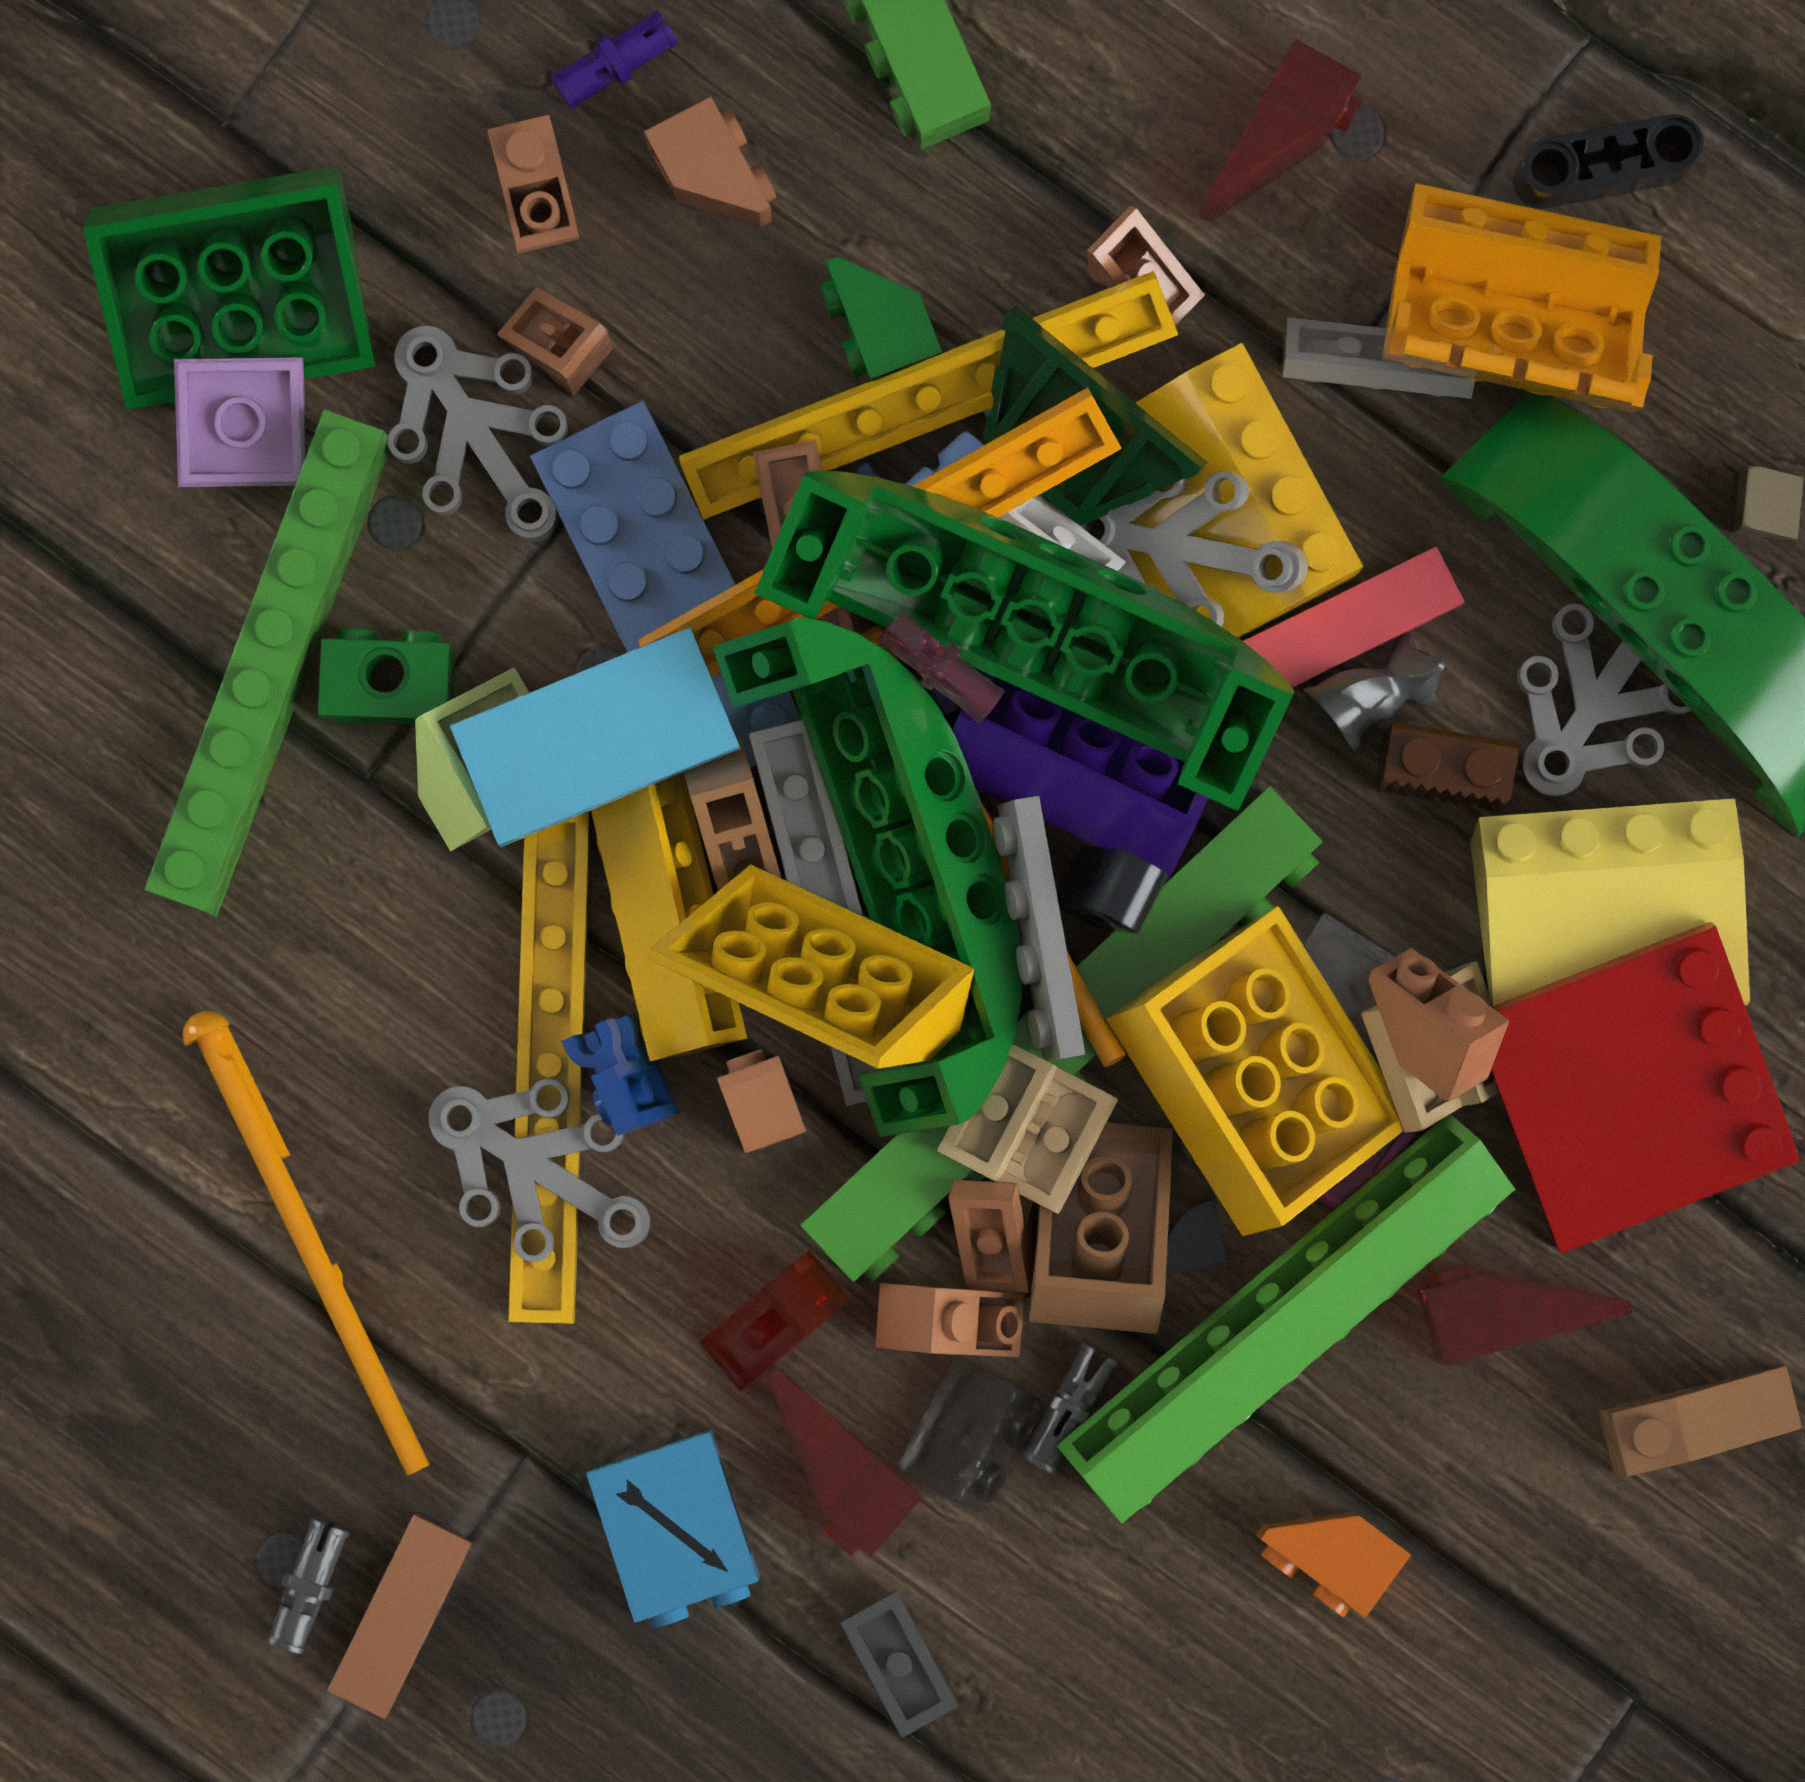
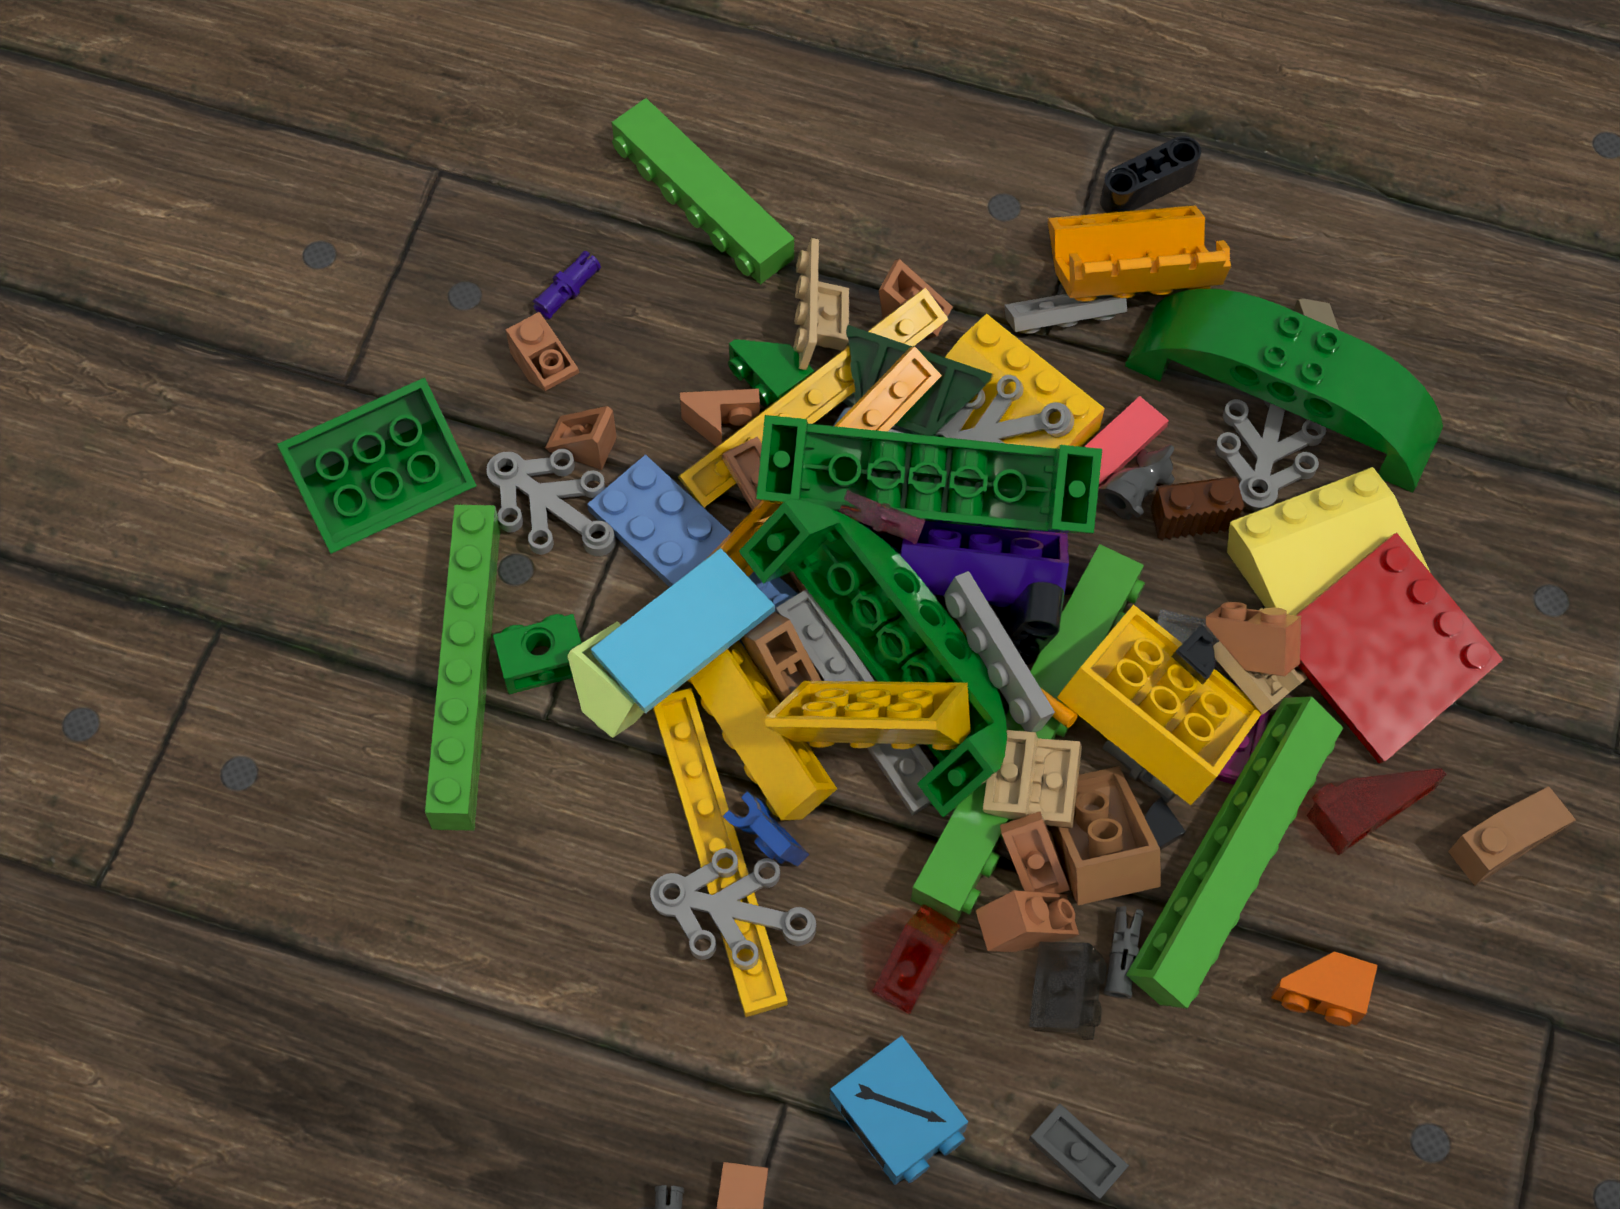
camera: 15 degrees left, 20 degrees down
(240, 421) = (403, 536): lavender plate -> none
(268, 1149) = (492, 897): light orange bar -> none
(705, 166) = (640, 321): nougat slope -> none
(760, 1101) = (860, 821): nougat slope -> none
(764, 358) = (710, 409): none -> nougat slope
(847, 1478) = (998, 1040): clear red slope -> none
(996, 245) = (822, 308): none -> tan bracket
(1291, 123) = (966, 208): clear red slope -> none
(1339, 1019) = (1197, 654): none -> black tile

